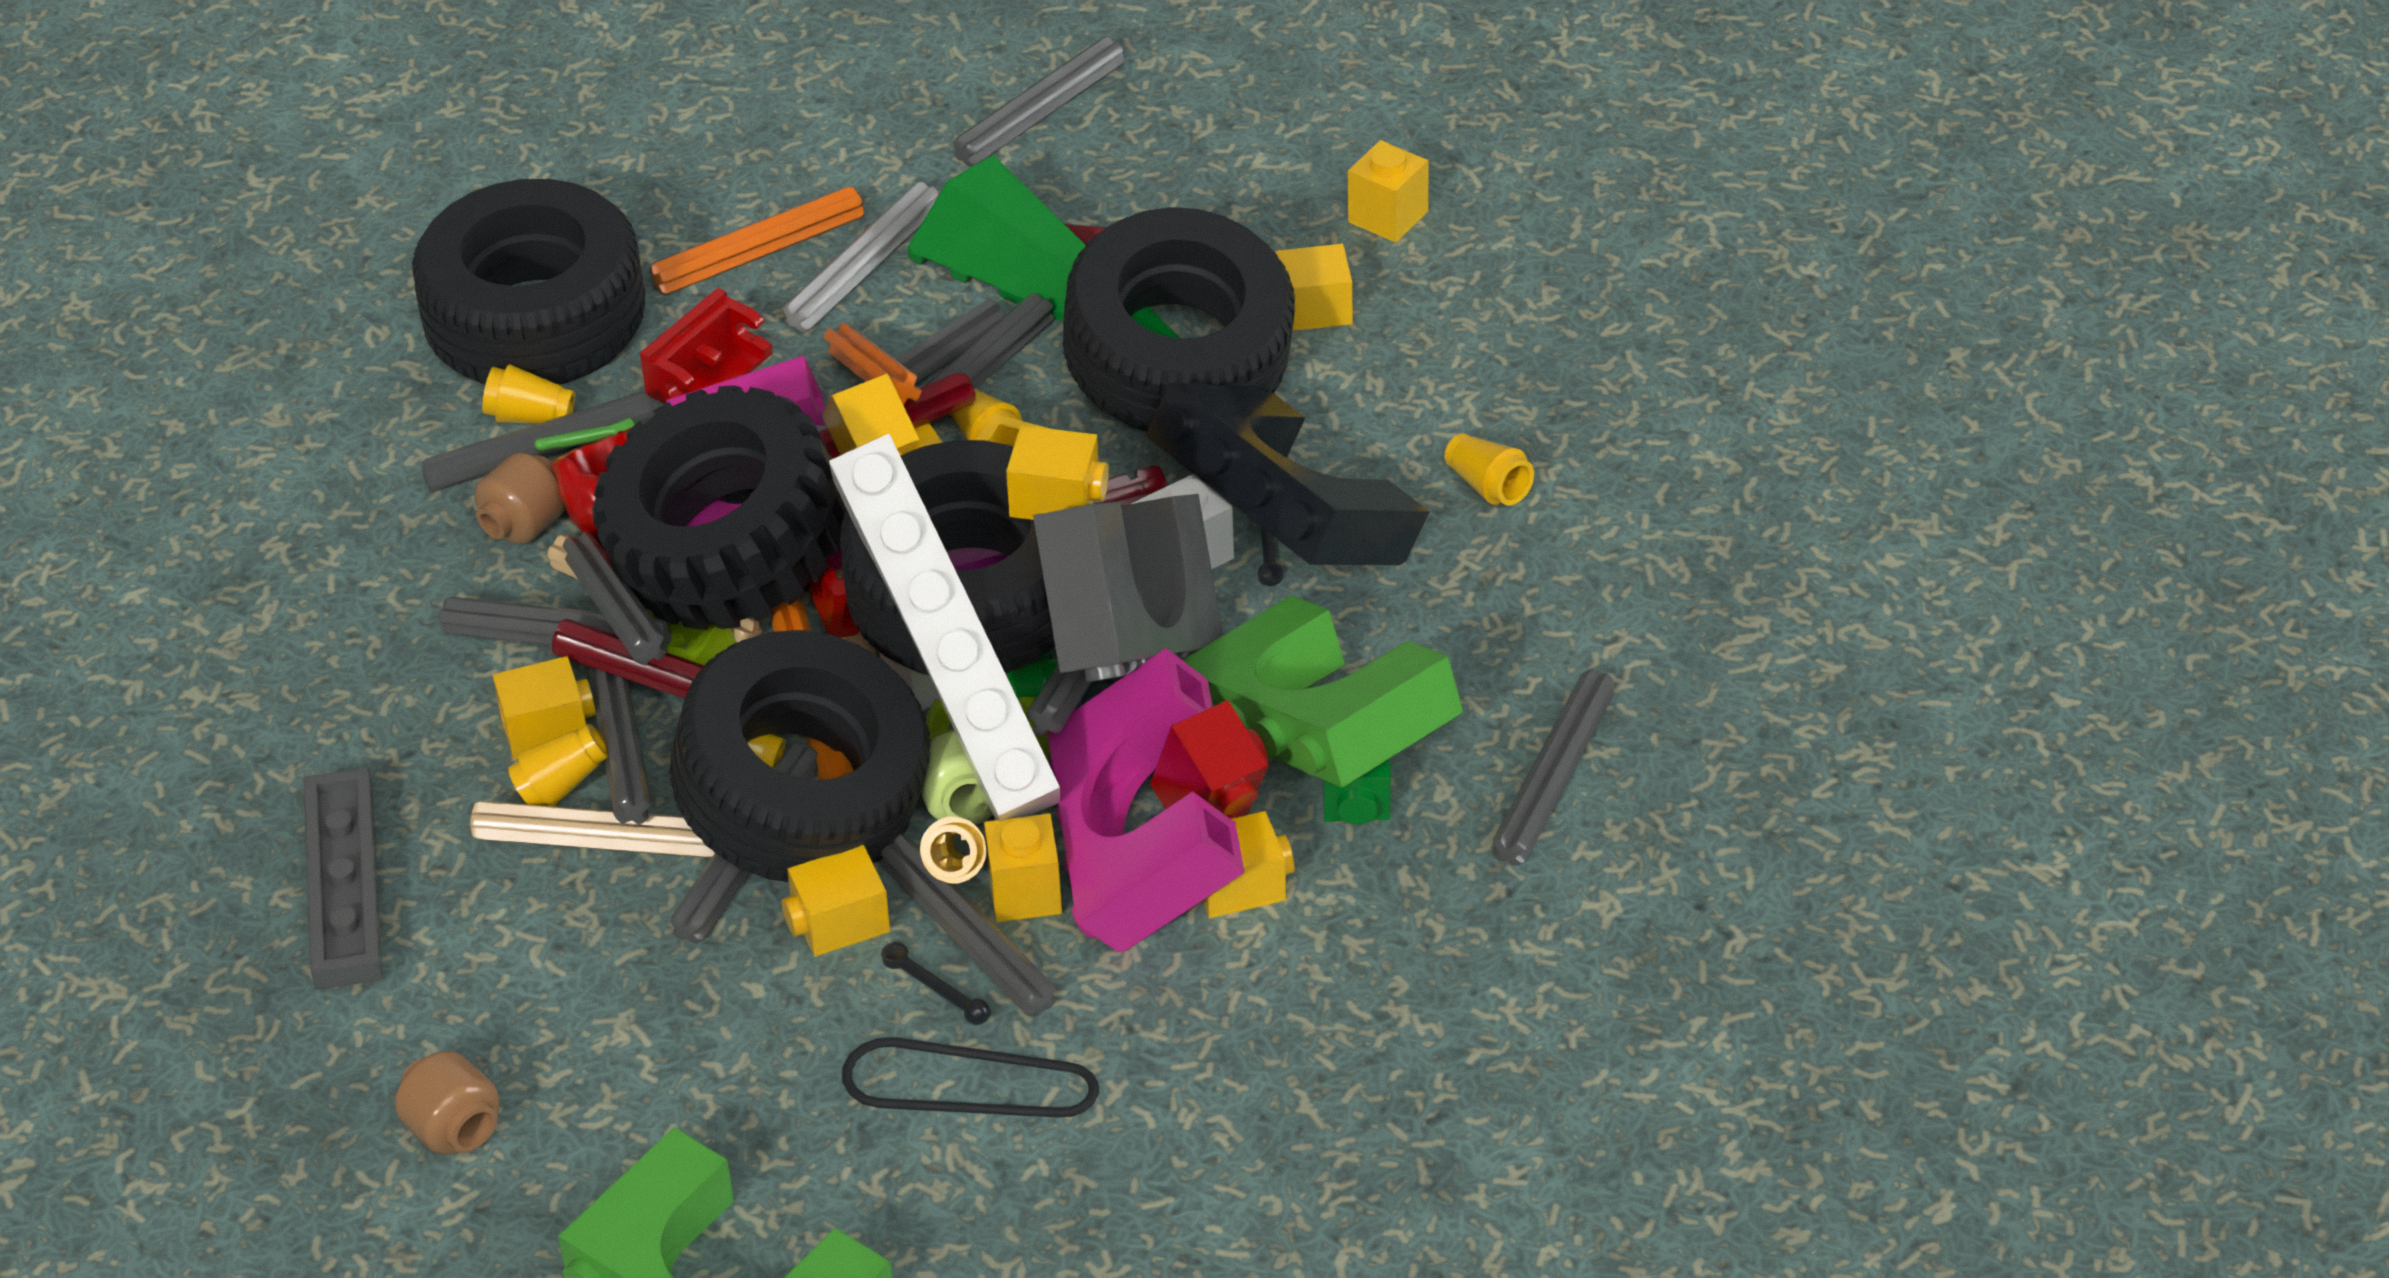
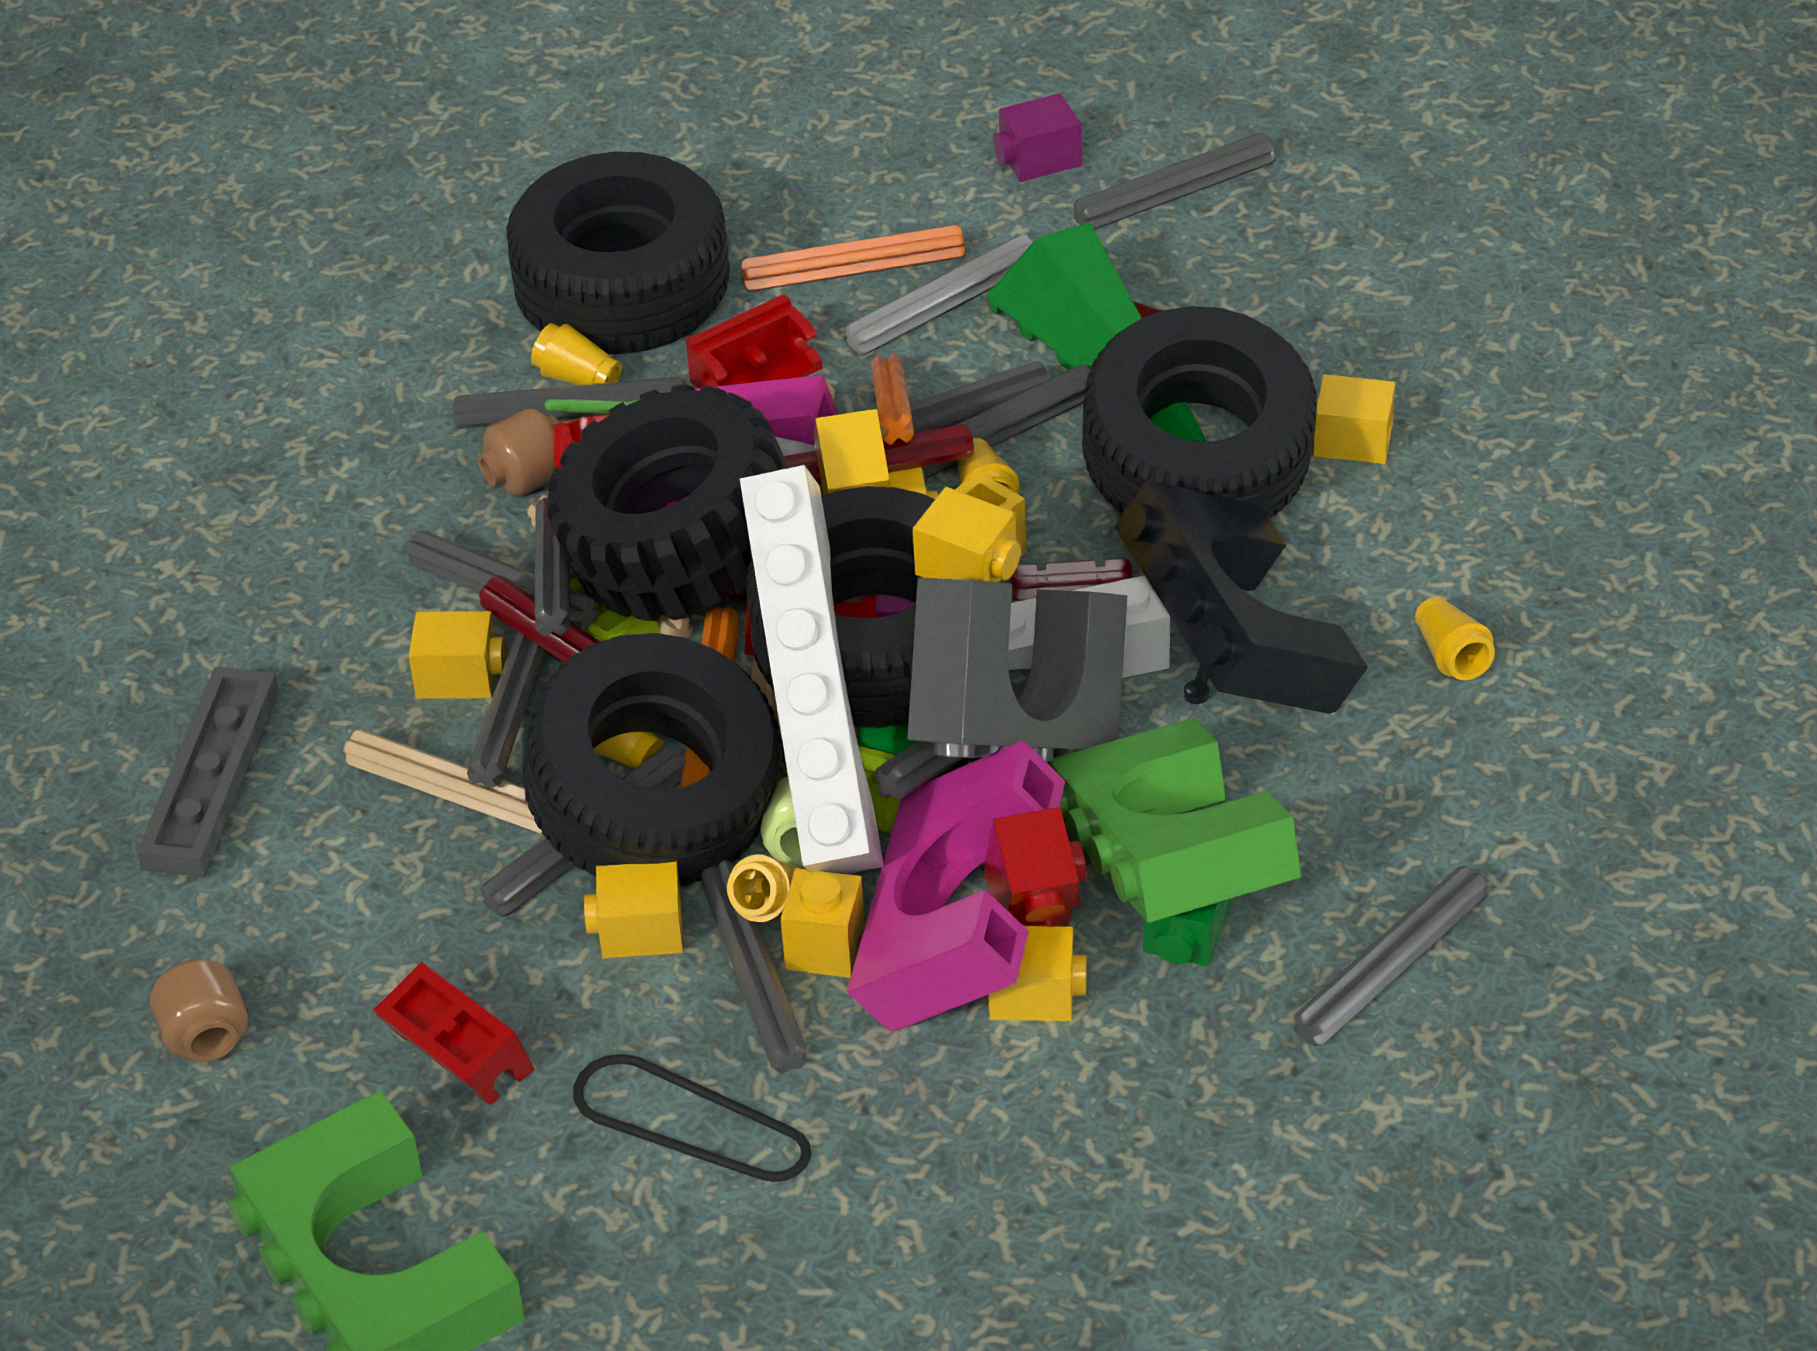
camera: 20 degrees right, 0 degrees up
(556, 767) = (440, 714): yellow cone -> none
(713, 1055) = (454, 1031): none -> red hinge
(893, 85) = (1039, 137): none -> magenta brick
(896, 956) = (676, 978): black hinge -> none
(1388, 191) = (1468, 340): yellow brick -> none

